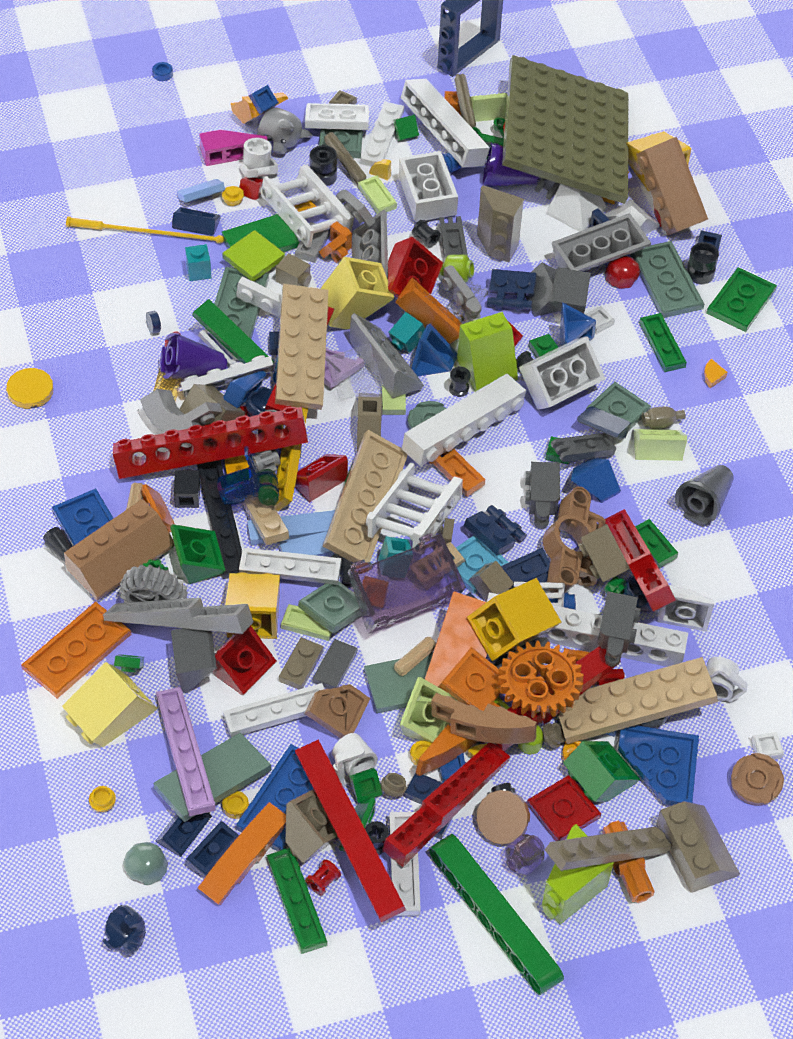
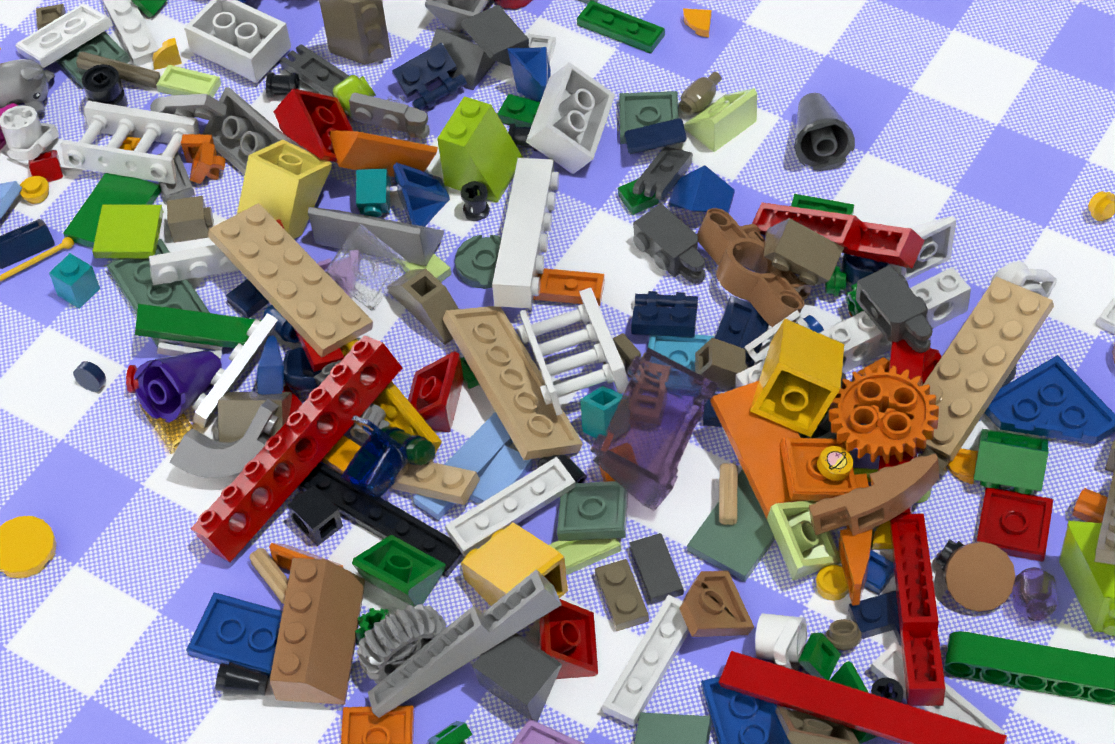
camera: 35 degrees left, 0 degrees up
(484, 685) = (835, 463): none -> yellow tile

